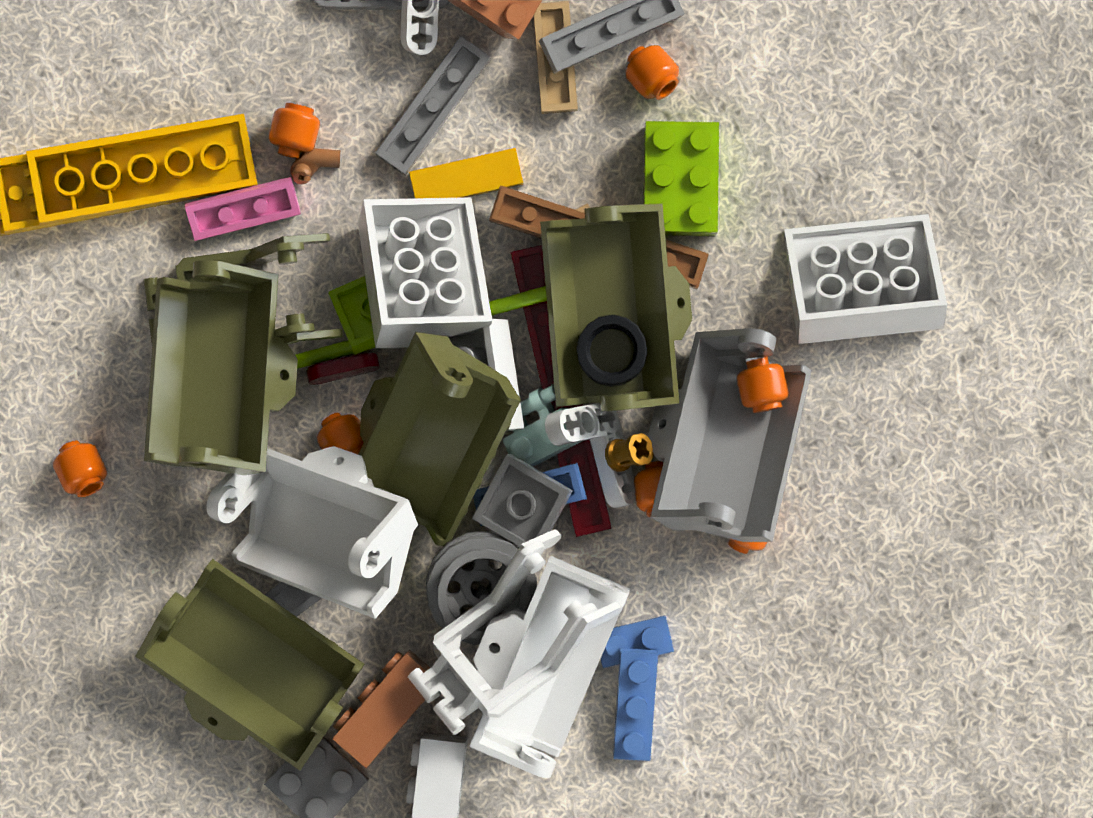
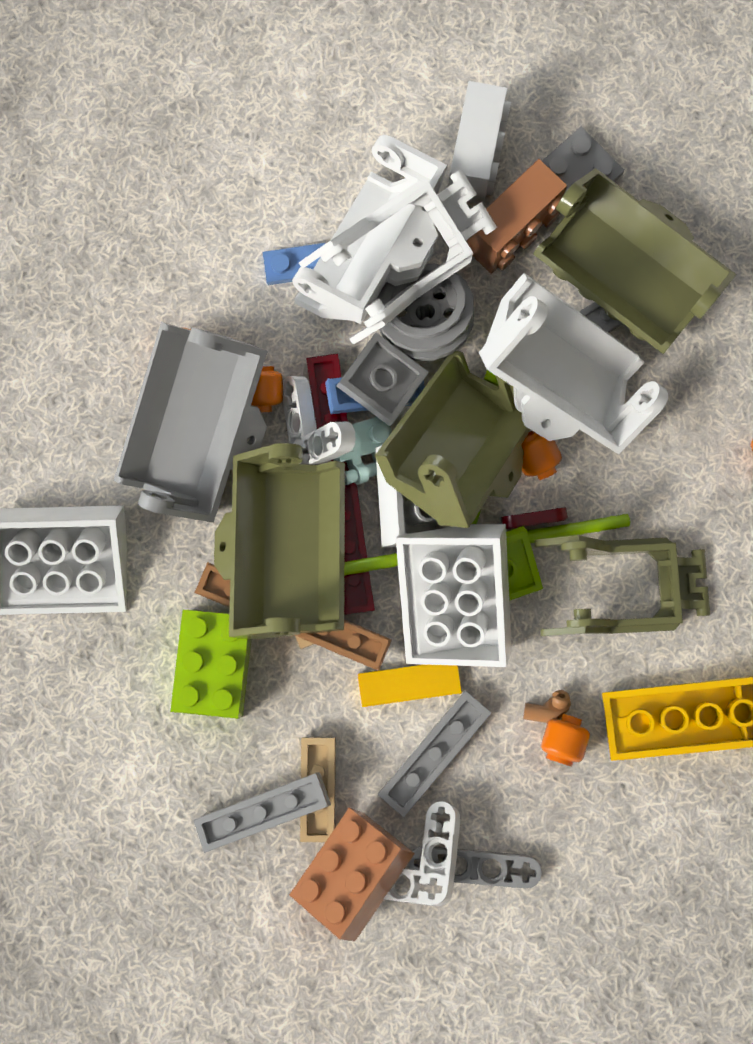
camera: 175 degrees left, 5 degrees down
(216, 369) = (653, 515): olive piece -> none
(242, 208) = (617, 671): bright pink plate -> none
(606, 323) = (269, 492): black tyre -> none
(634, 451) = (278, 417): pearl gold bush -> none
(635, 704) = (299, 209): medium blue plate -> none
(652, 72) = (229, 767): orange head -> none
(762, 385) = (157, 466): orange head -> none

